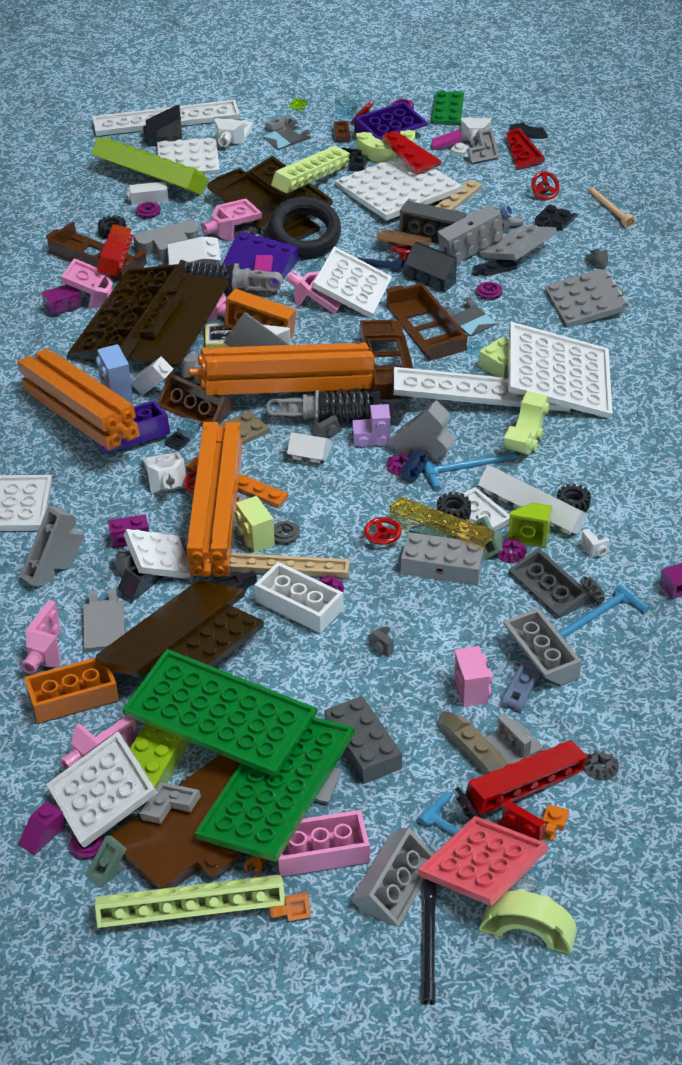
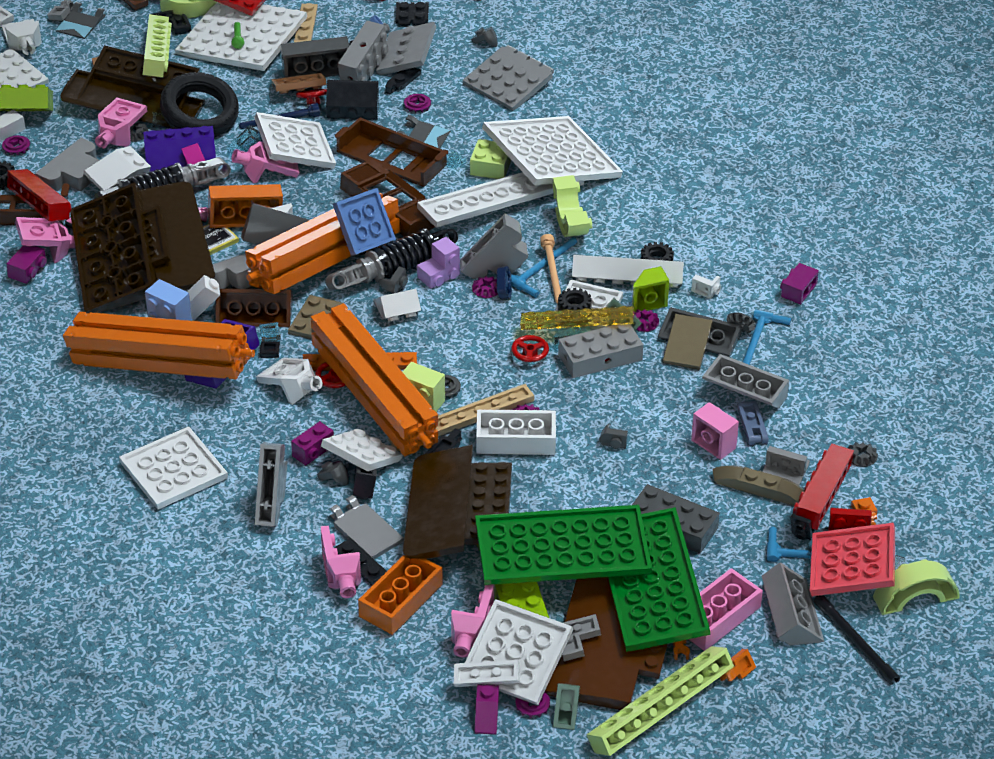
camera: 35 degrees left, 0 degrees up
(60, 795) = (486, 673): none -> white plate
(73, 644) = (370, 569): none -> black plate
(323, 363) = (364, 221): none -> medium blue plate
(383, 189) = (237, 41): none -> bright green bar
(483, 447) = (547, 243): none -> light nougat piece
(528, 585) = (687, 341): none -> dark tan tile

